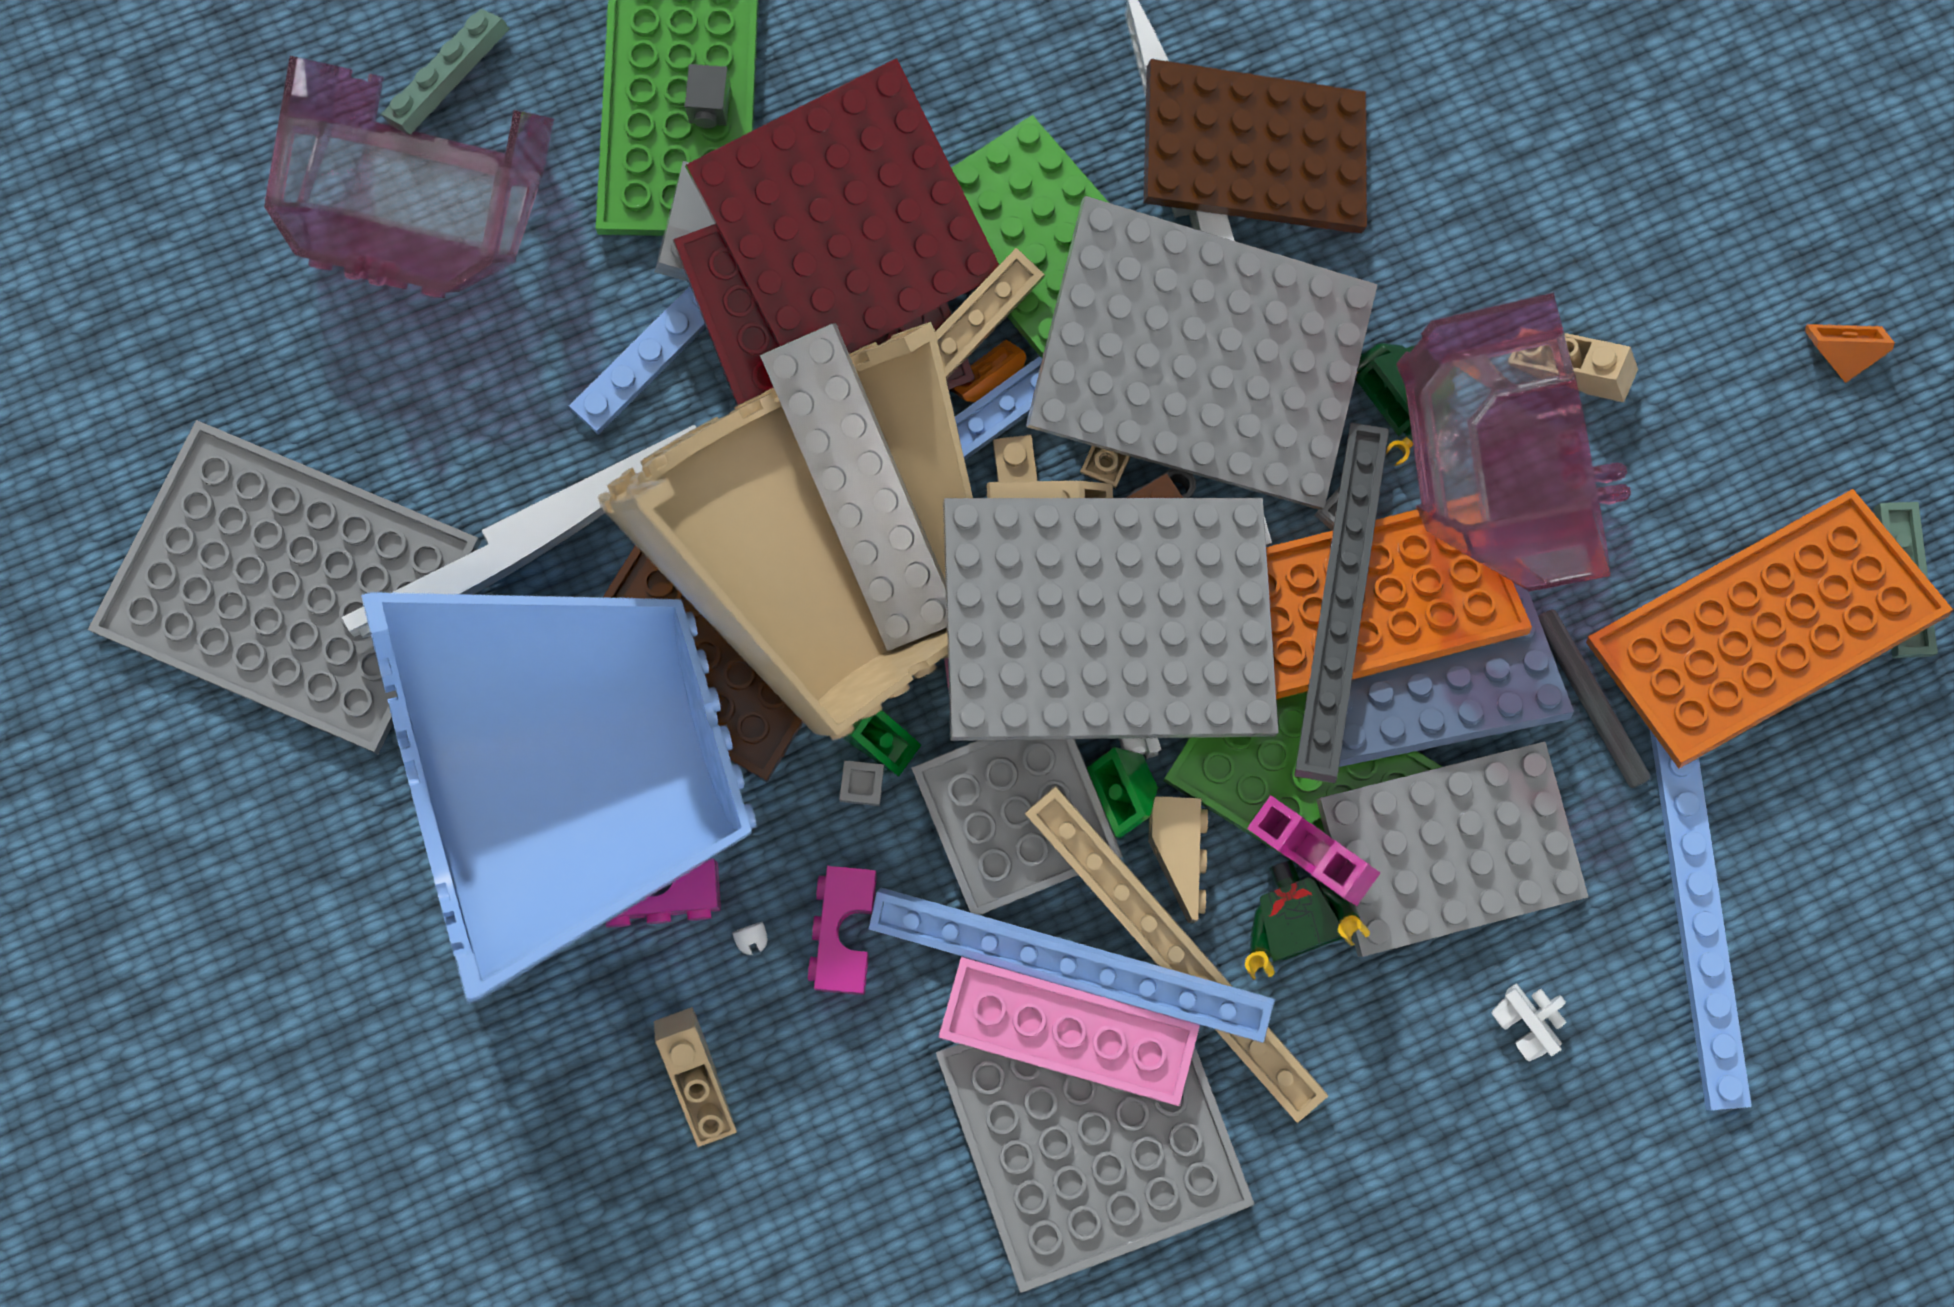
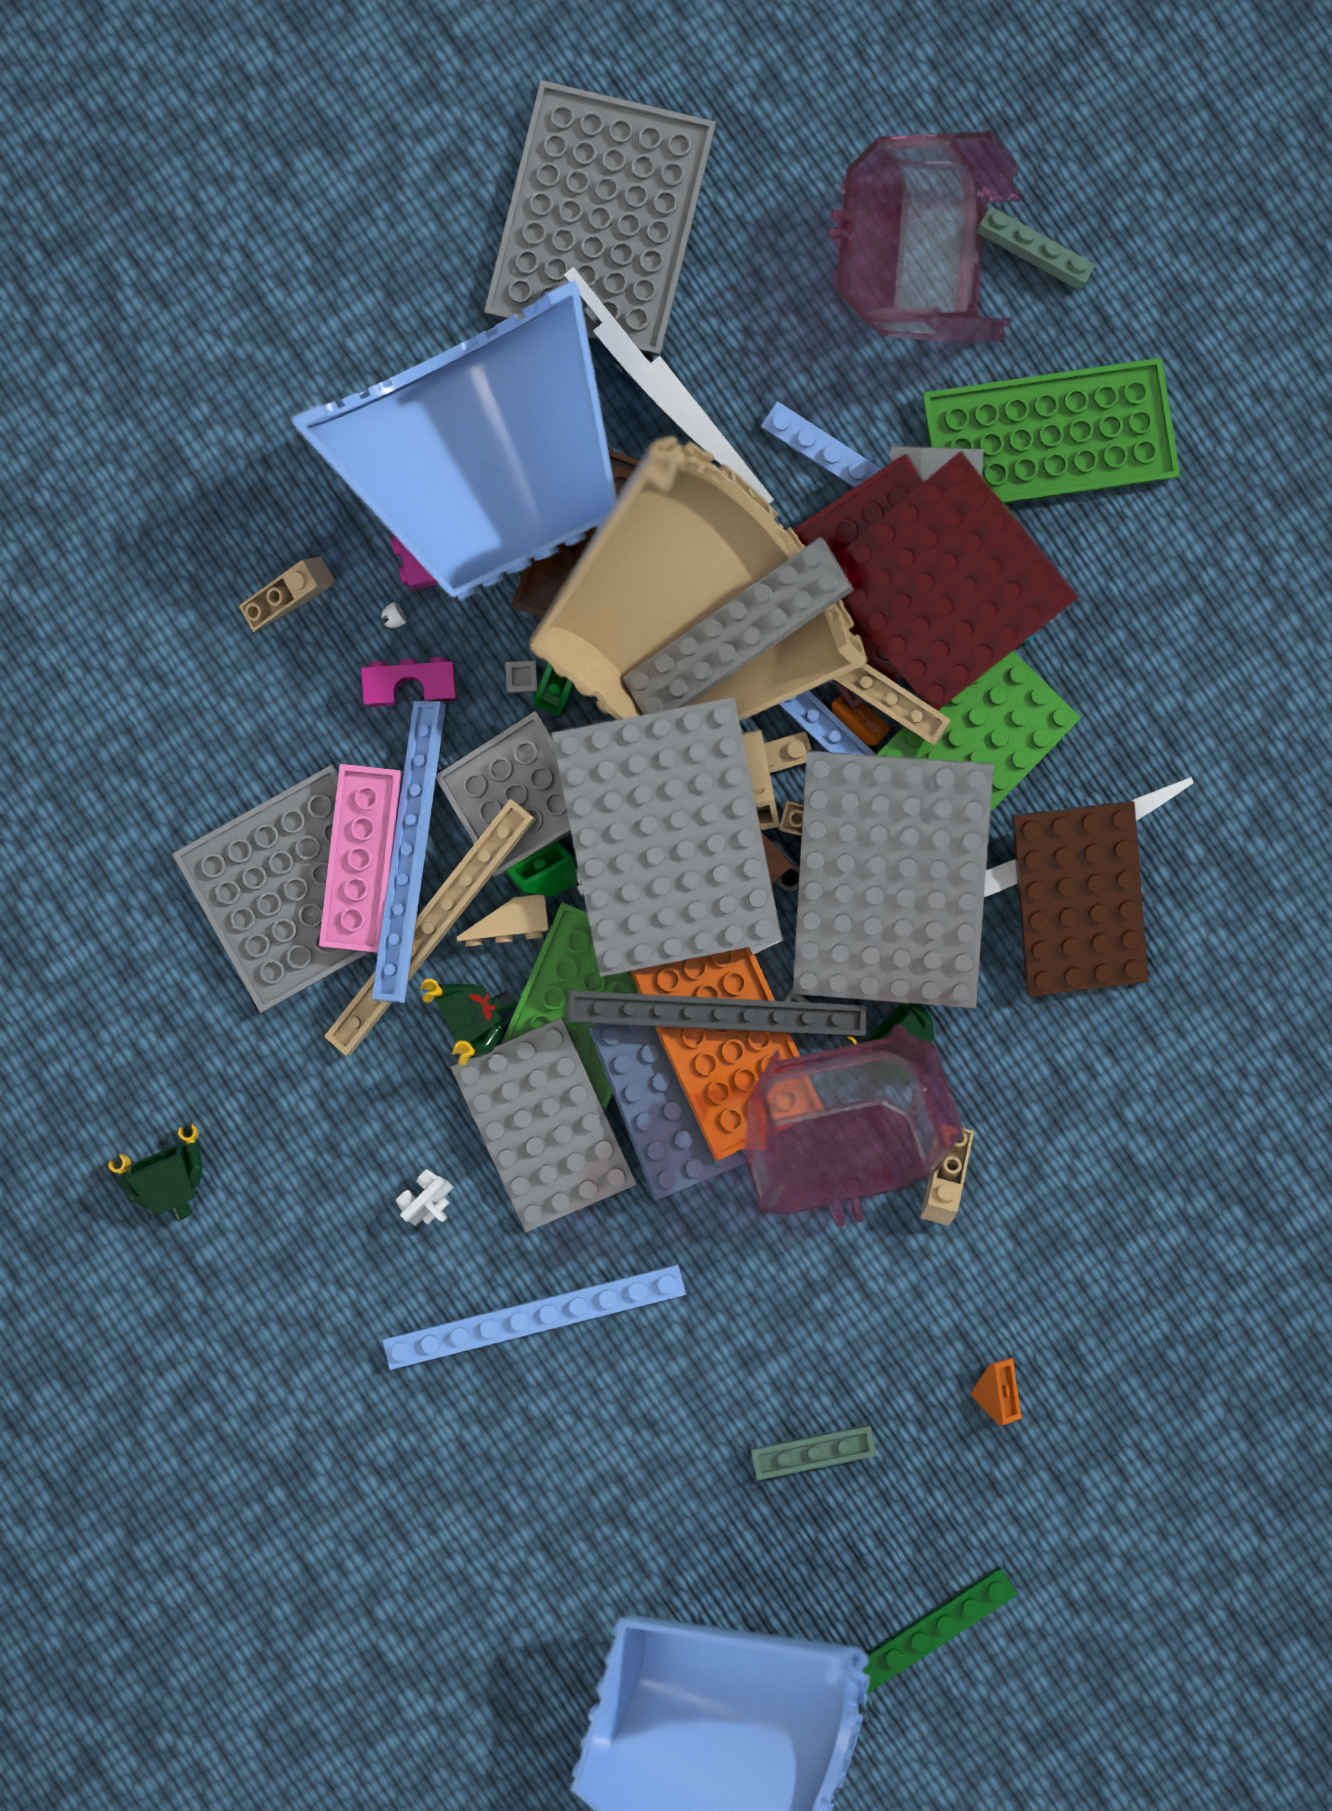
camera: 80 degrees right, 10 degrees up
(707, 95) = (1044, 458): dark grey brick -> none
(1314, 850) = (528, 1002): dark pink arch -> none
(1593, 700) = (679, 1219): dark grey axle -> none
(1767, 627) = (754, 1345): orange plate -> none

